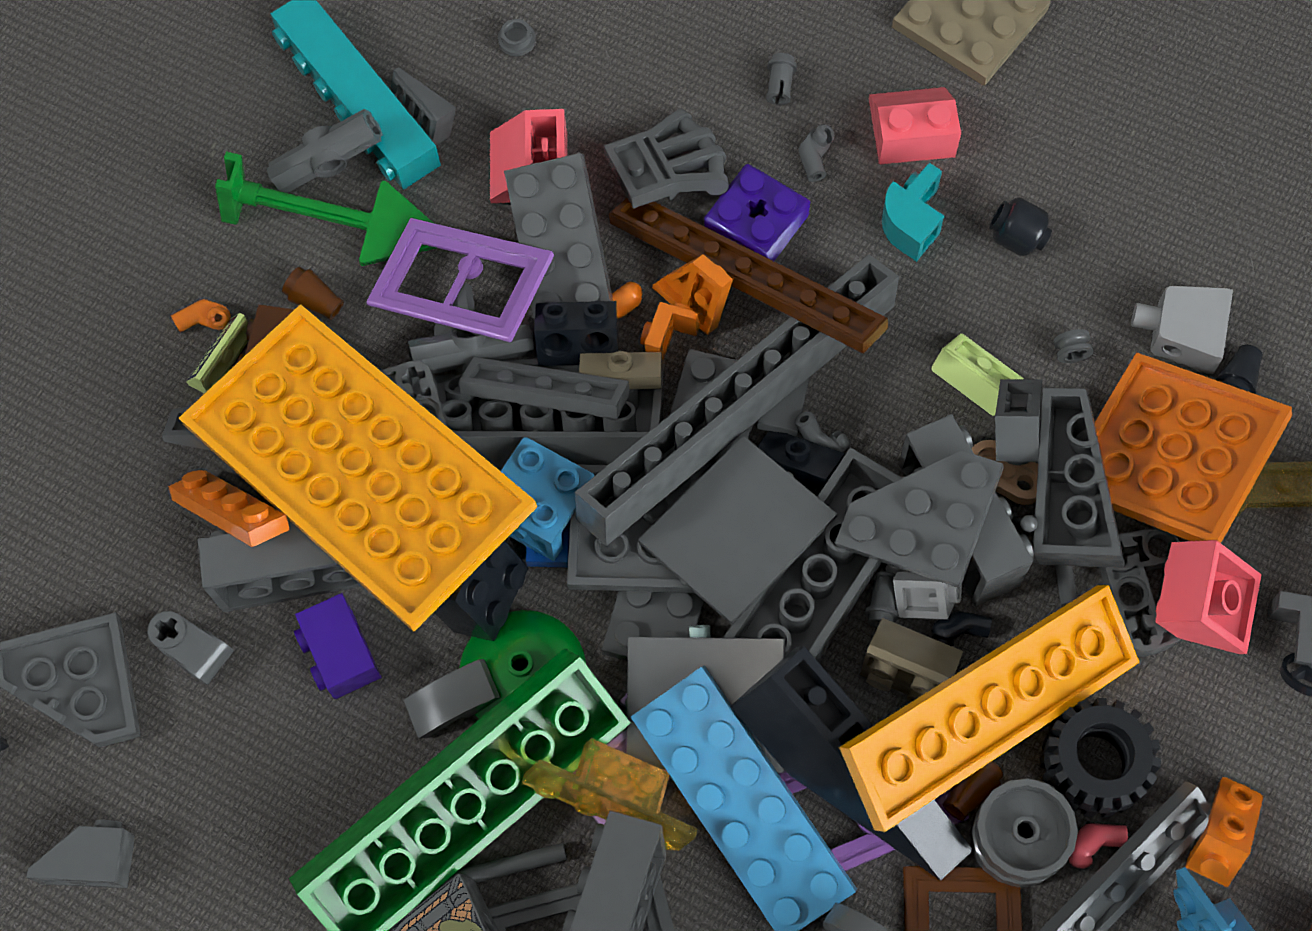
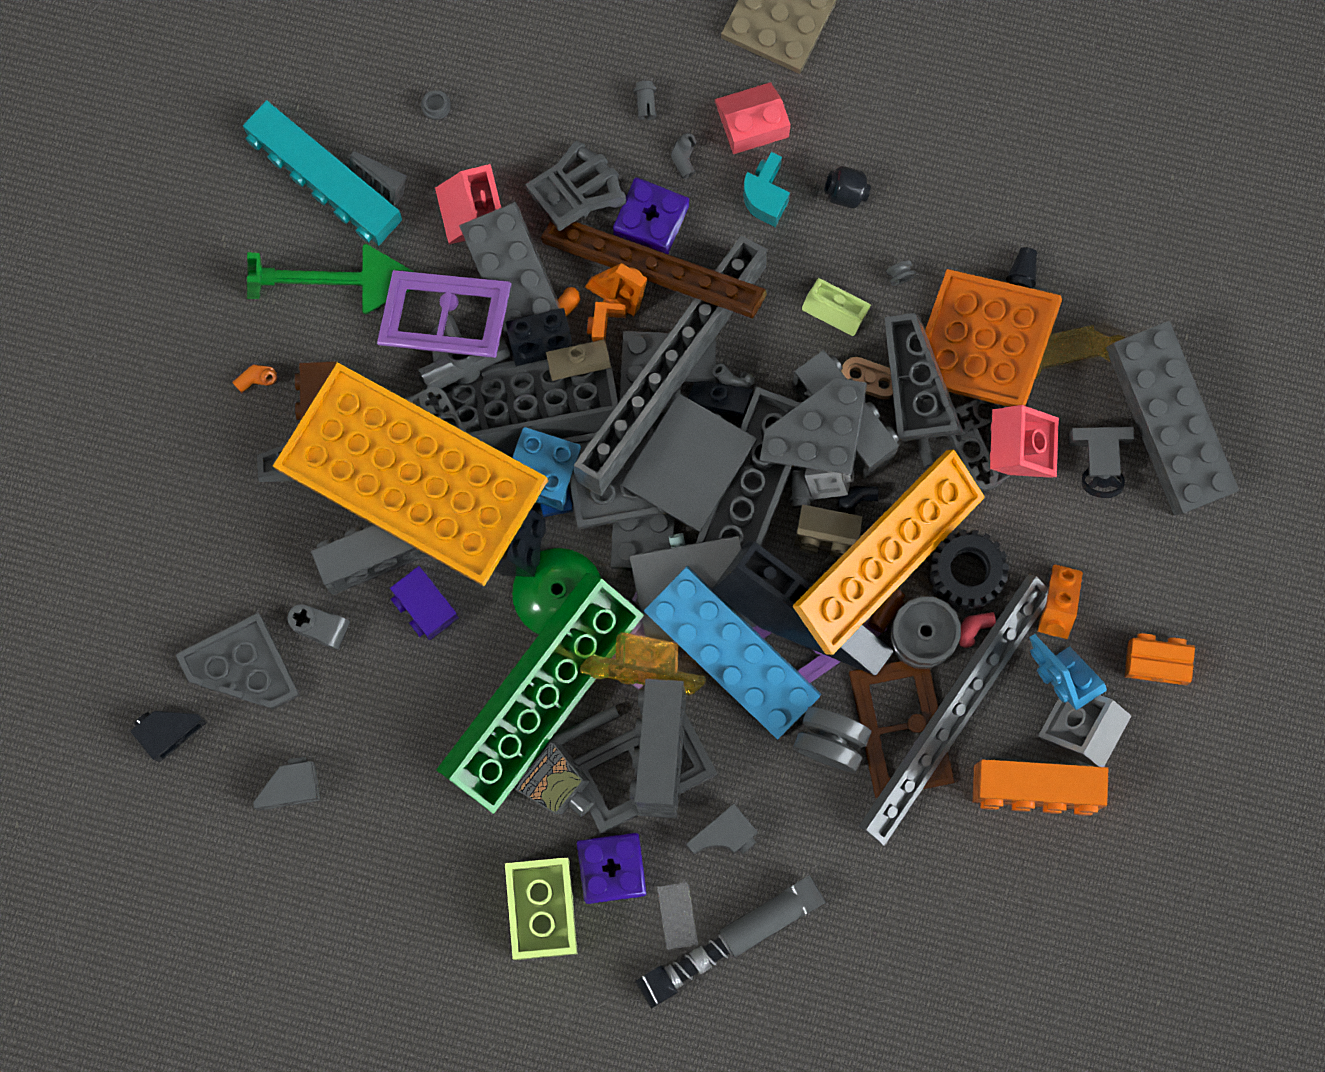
camera: 15 degrees left, 10 degrees up
(220, 354) = (277, 405): yellowish green slope -> none
(228, 507) = (323, 522): orange plate -> none
(312, 293) = (334, 344): reddish brown cone -> none
(324, 151) = (315, 232): dark grey piece -> none
(451, 697) = (514, 623): dark grey slope -> none
(544, 387) = (527, 385): dark grey plate -> none
(1018, 421) = (871, 341): dark grey brick -> none
(1027, 523) = (891, 418): dark grey hinge -> none
(1188, 325) = (980, 240): light grey torso -> none

